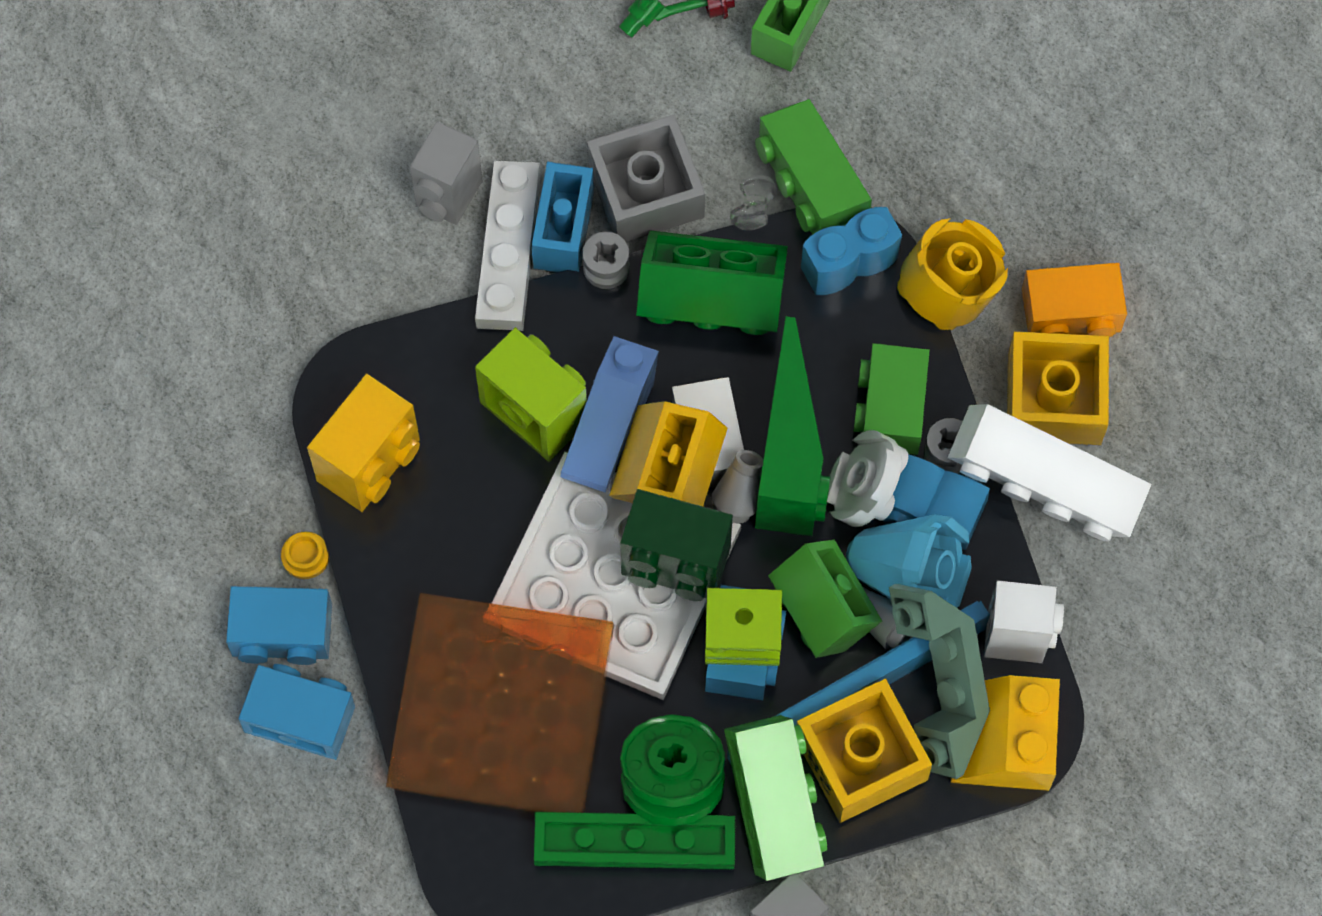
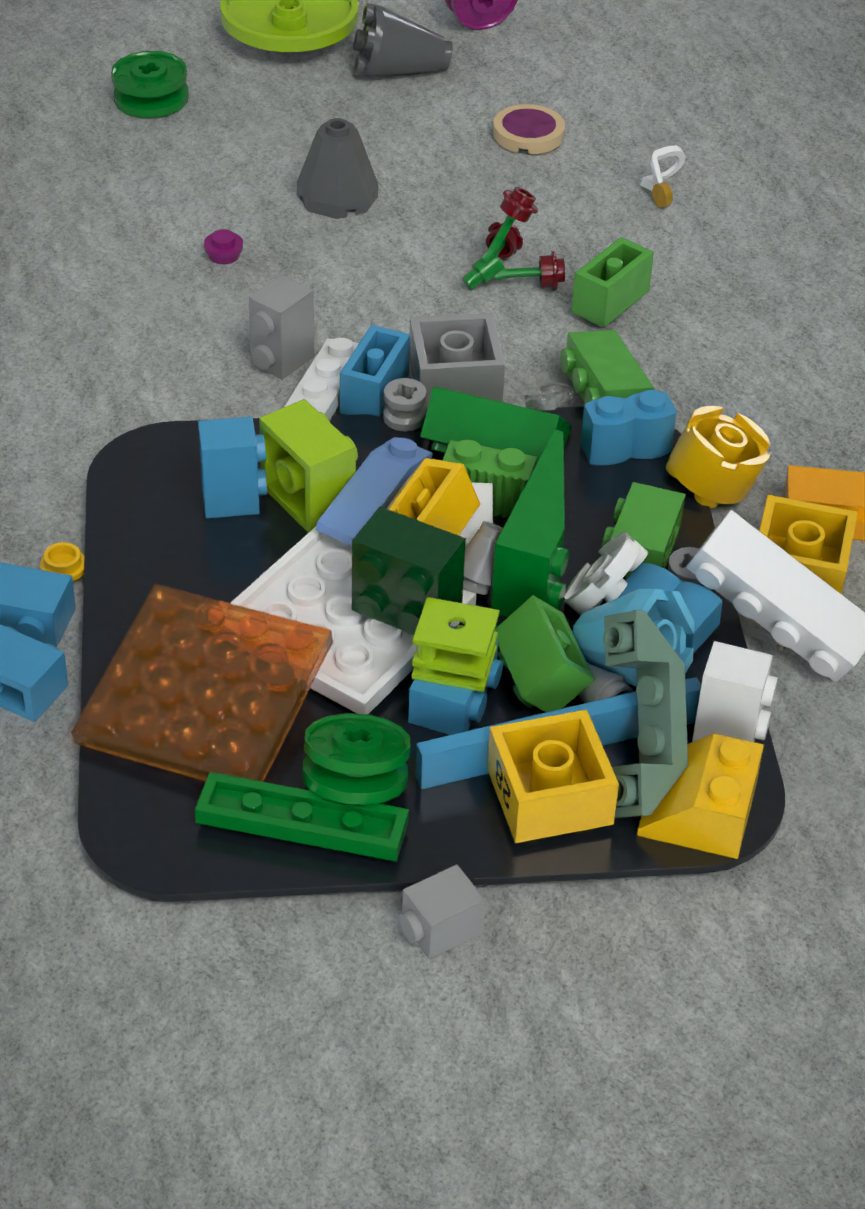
camera: 10 degrees right, 25 degrees down
(338, 29) = (223, 246): none -> magenta plate
(365, 443) = (142, 473): yellow brick -> none
(453, 412) = (230, 467): none -> dark azure brick
(718, 354) = (505, 469): none -> bright green brick
(776, 797) = (453, 789): brick -> none

